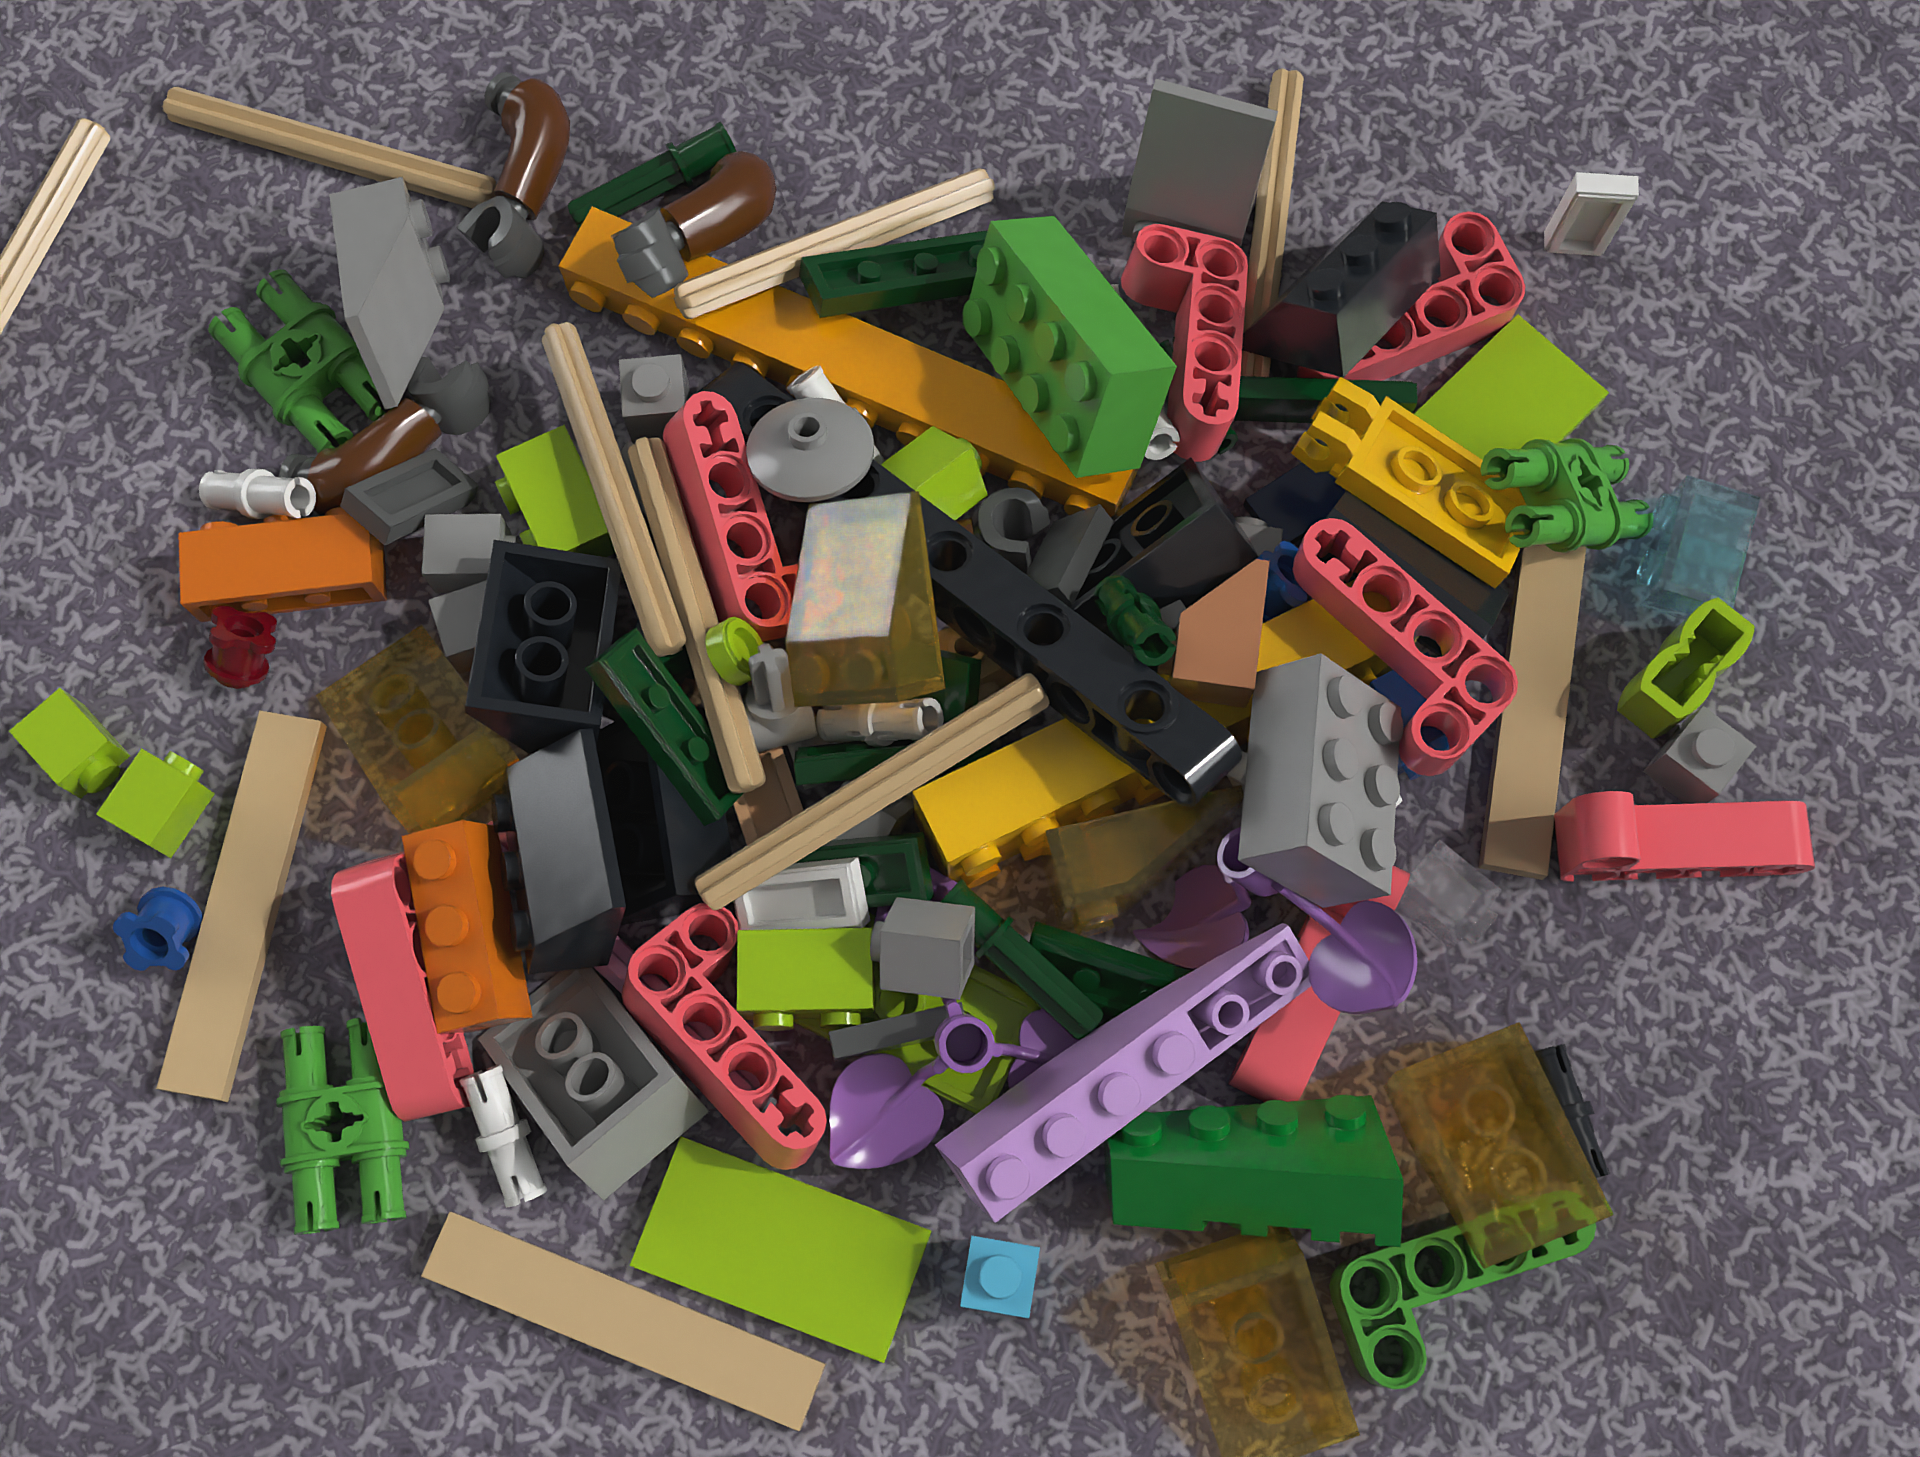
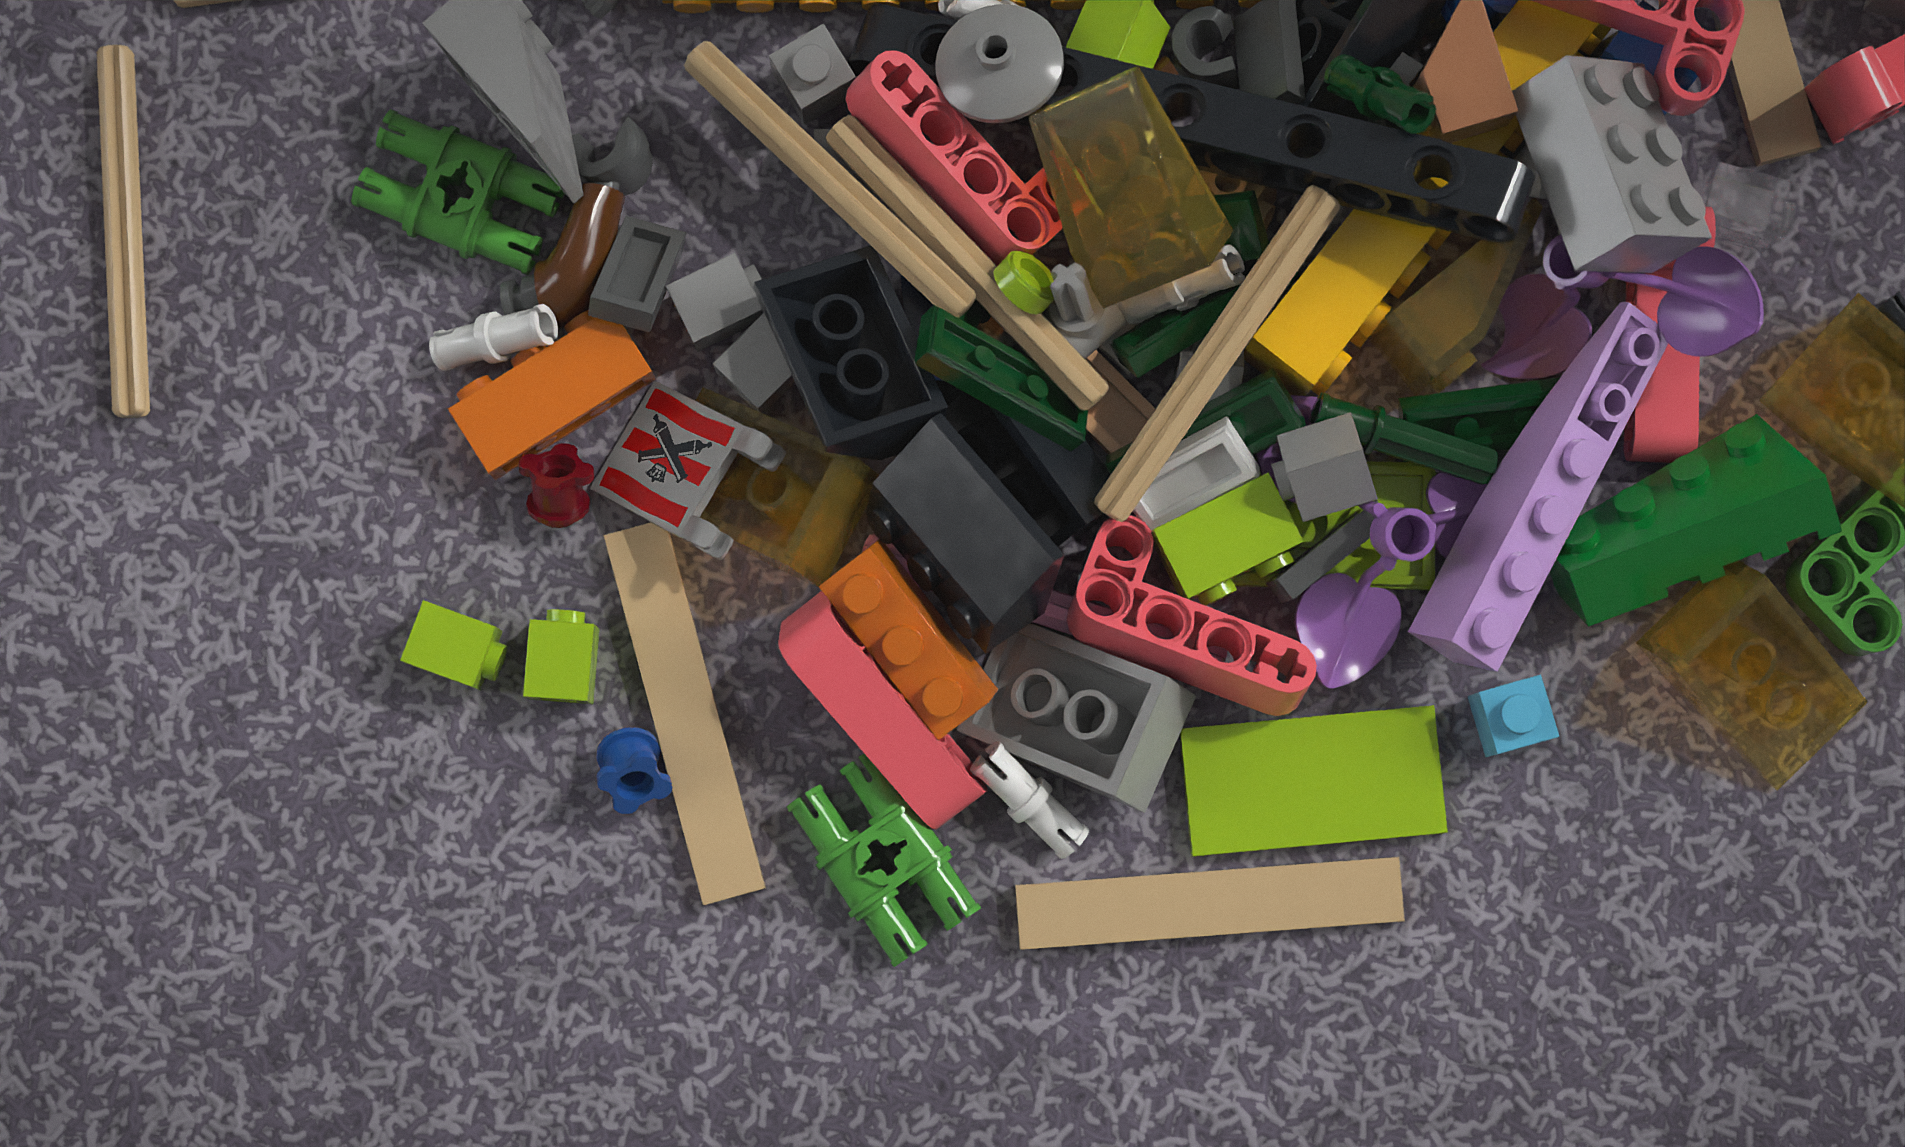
camera: 30 degrees left, 10 degrees up
(352, 674) = (675, 461): none -> light grey flag
(554, 494) = (770, 213): lime brick -> none

